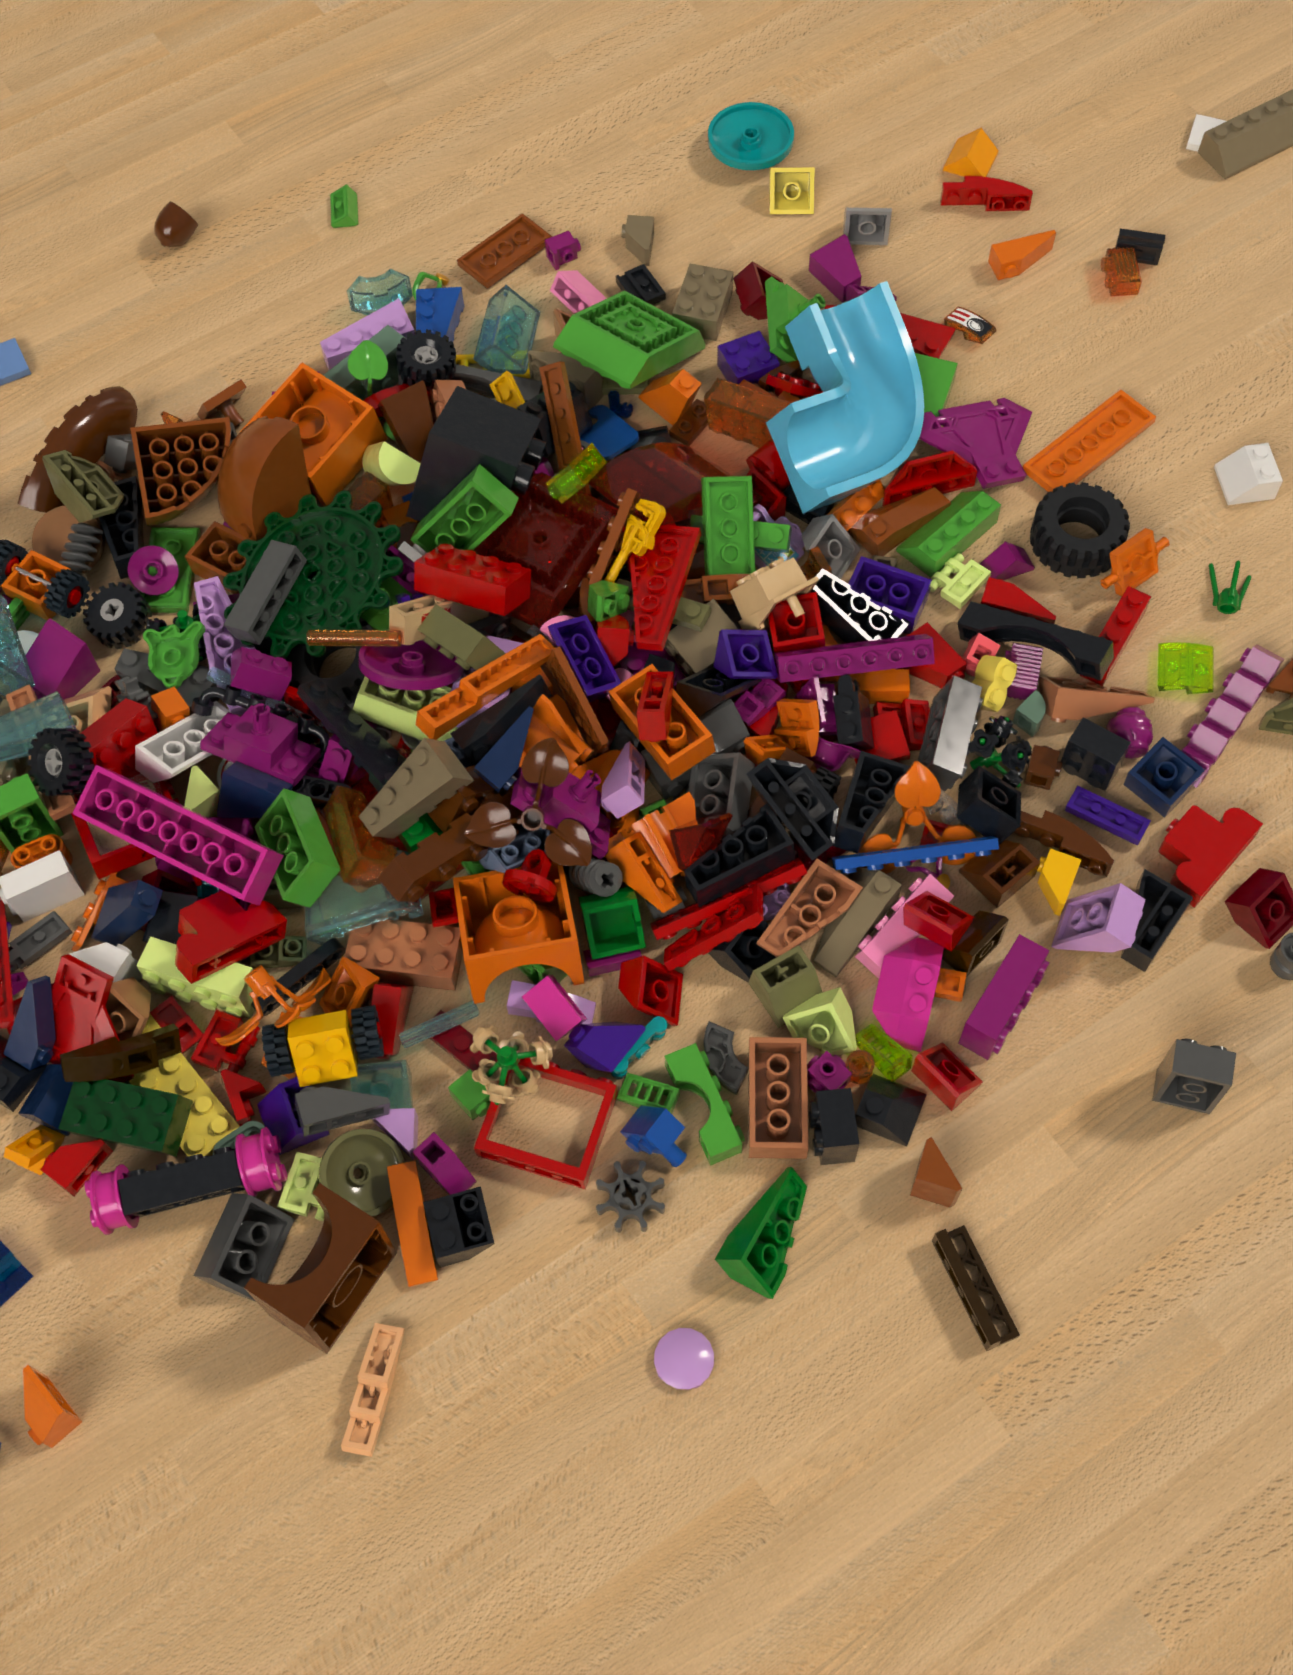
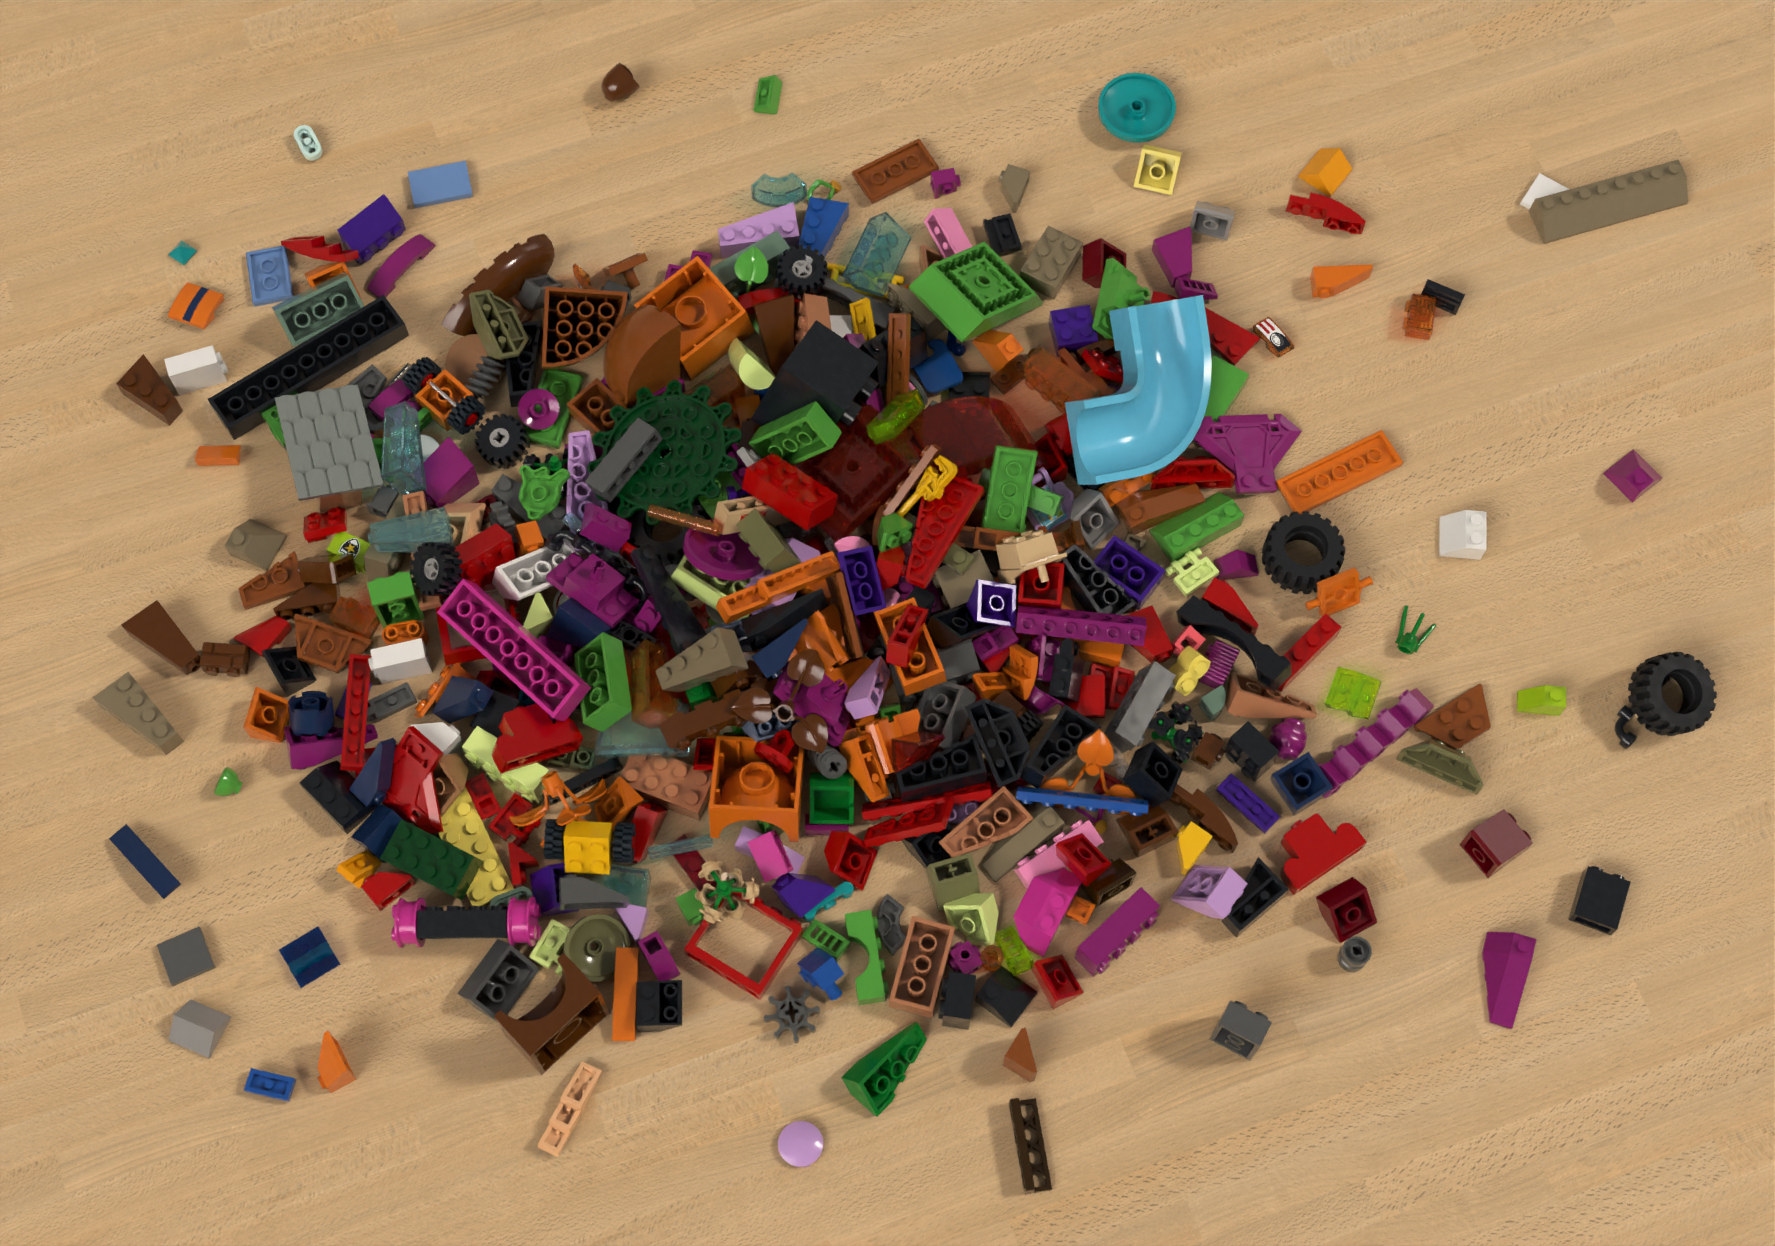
camera: 10 degrees right, 5 degrees up
(120, 1058) = (432, 816): dark brown slope -> none

